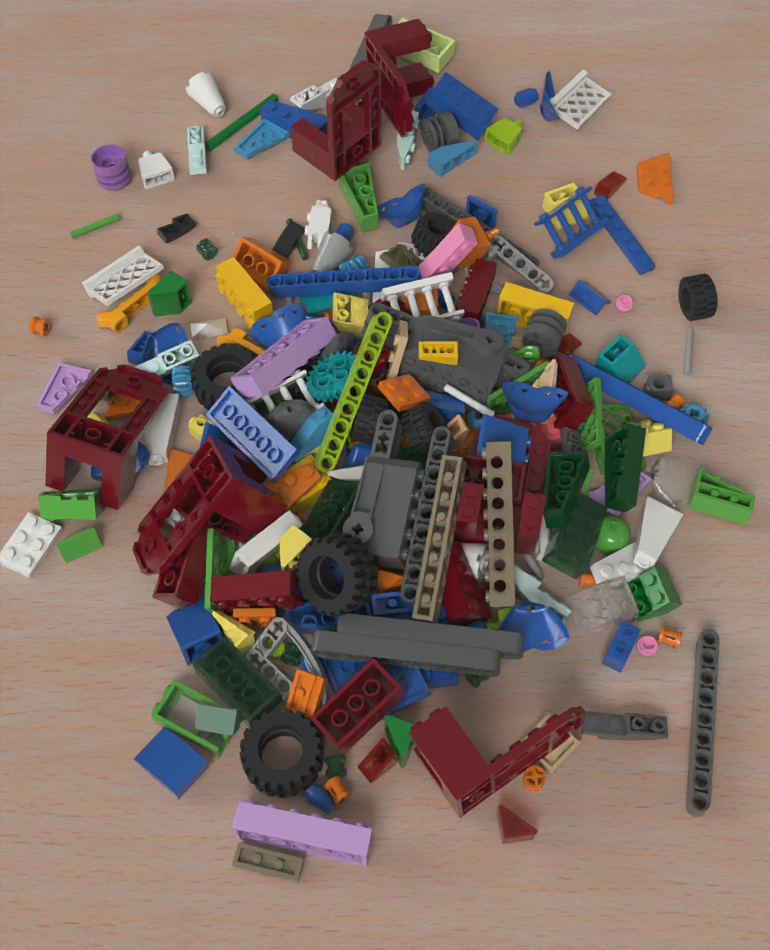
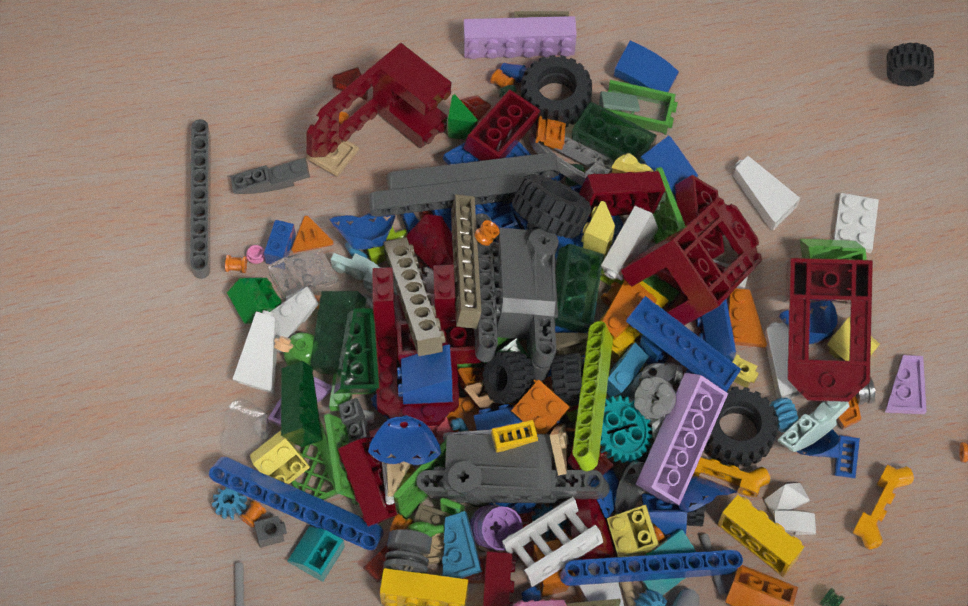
camera: 165 degrees right, 5 degrees up
(79, 545) = (809, 229): bright green slope -> none
(103, 587) = (765, 192): none -> white slope
(114, 273) = (920, 542): white fence -> none
(170, 295) = (843, 516): green slope -> none
(211, 306) = (796, 521): none -> white slope
(297, 374) = (664, 391): none -> light grey plate
(408, 552) = (487, 232): none -> orange wheel
(586, 655) = (310, 237): none -> orange piece
(632, 527) = (283, 344): none -> light nougat plate
(720, 499) = (197, 408): bright green wedge -> none

